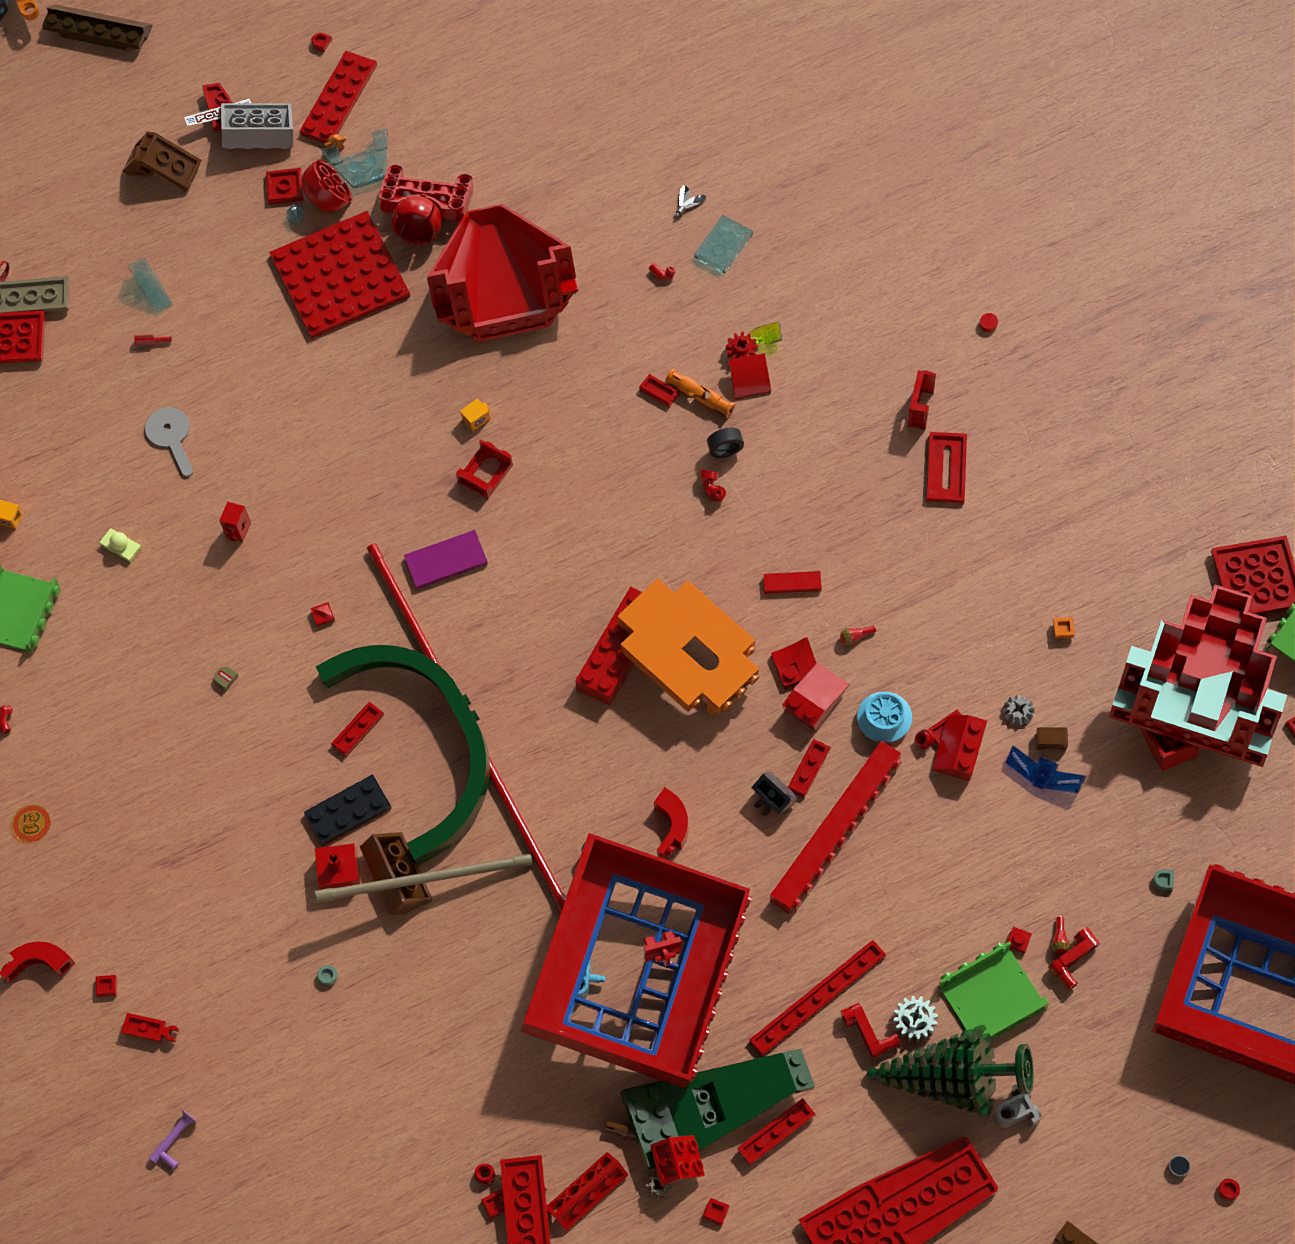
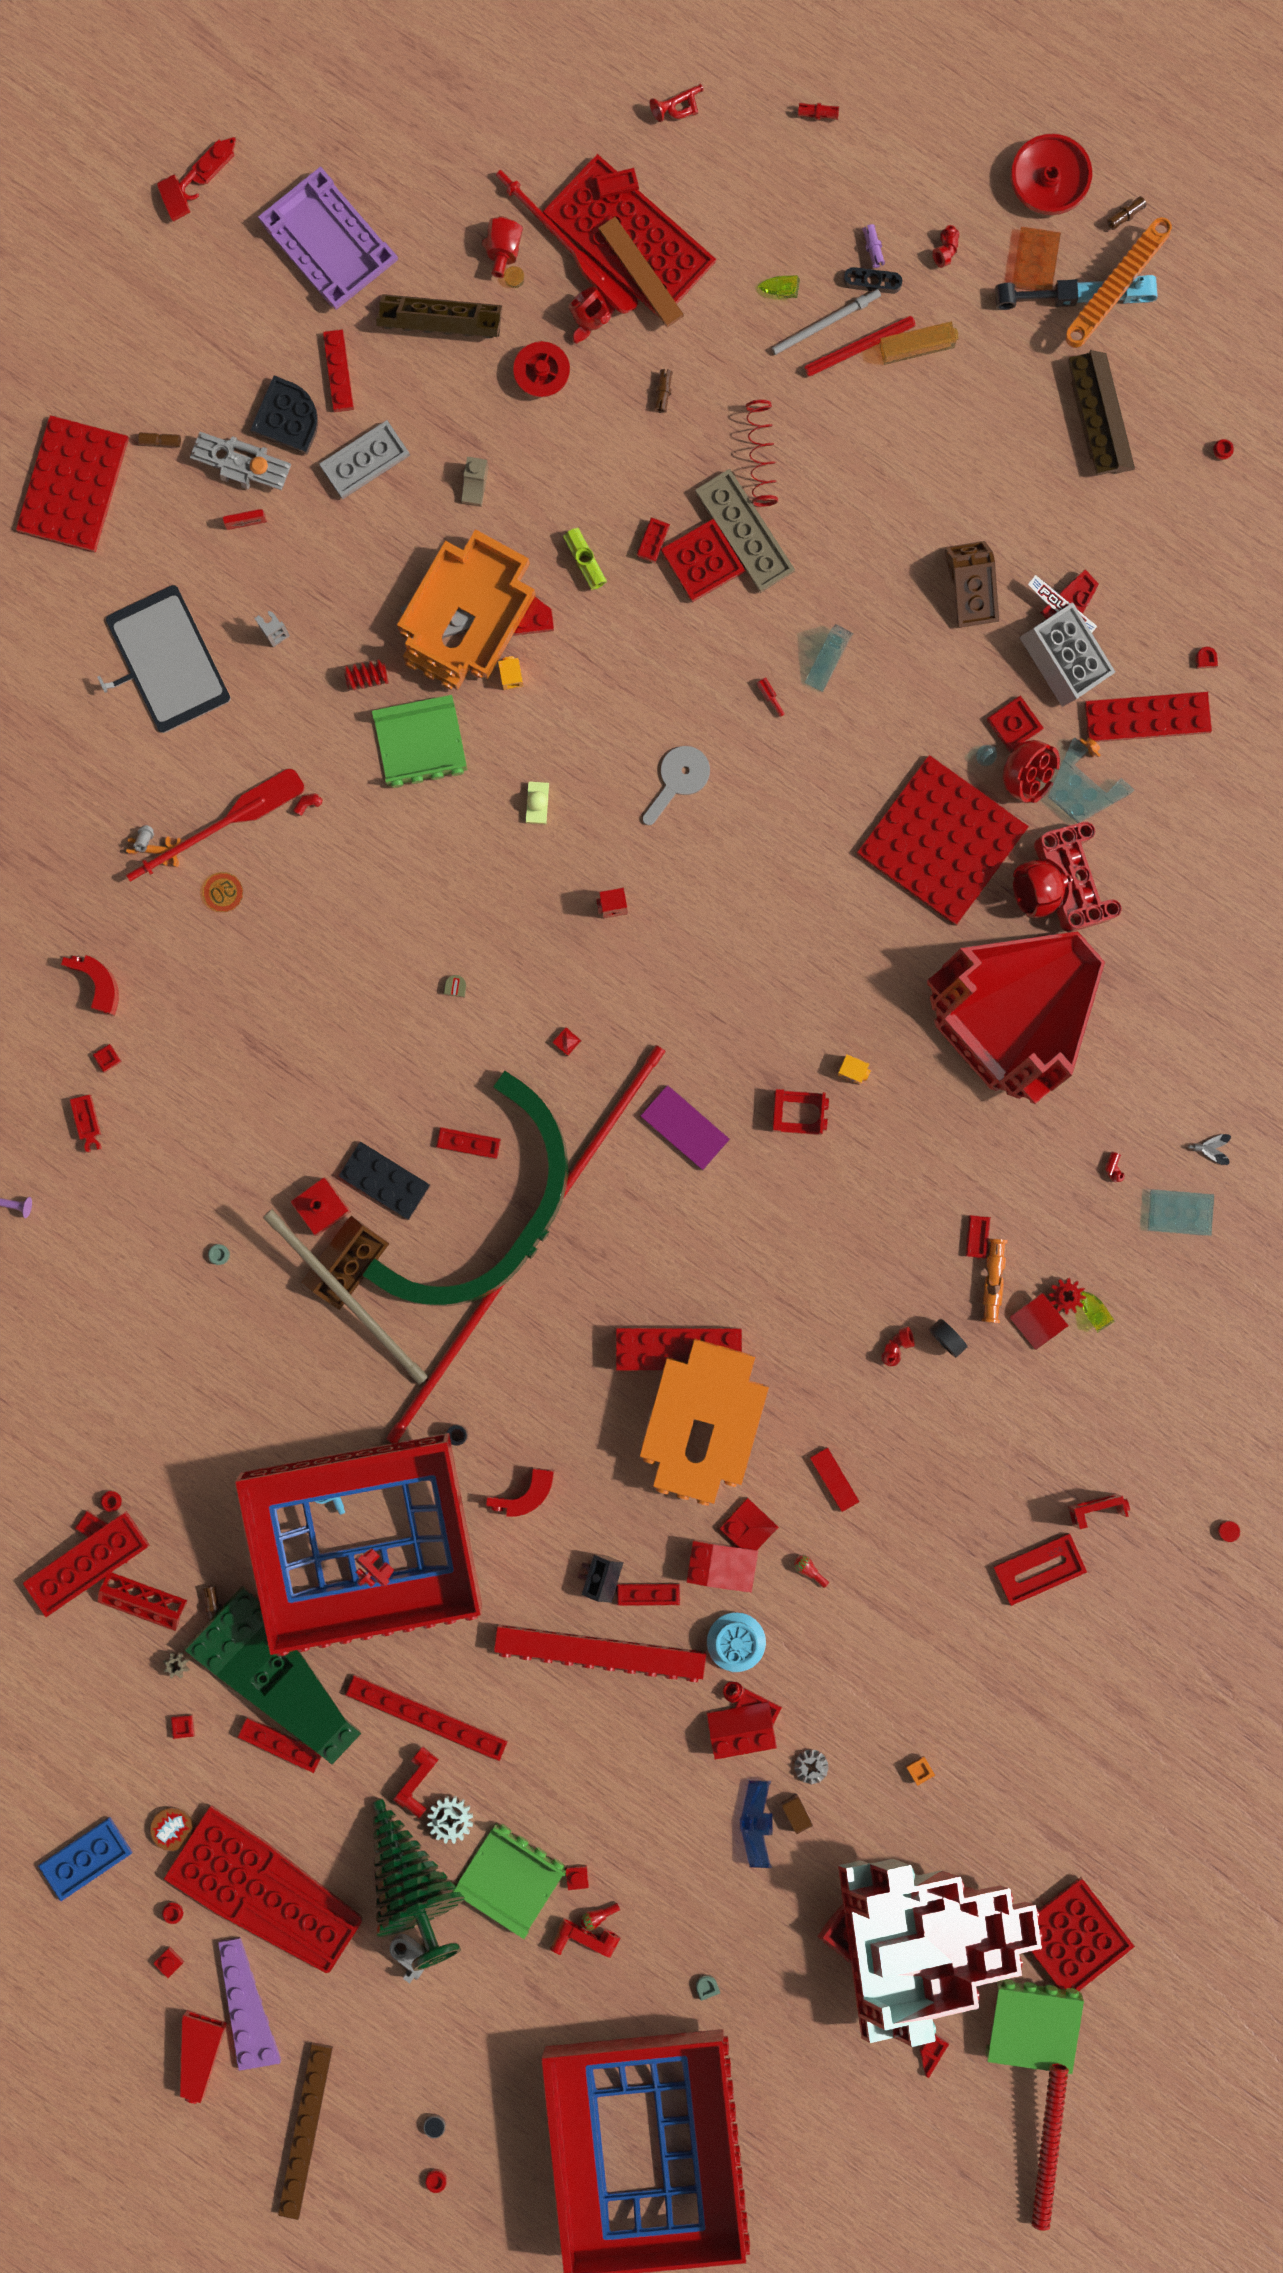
camera: 60 degrees right, 20 degrees up
(677, 1159) = (203, 1674): red bracket -> none

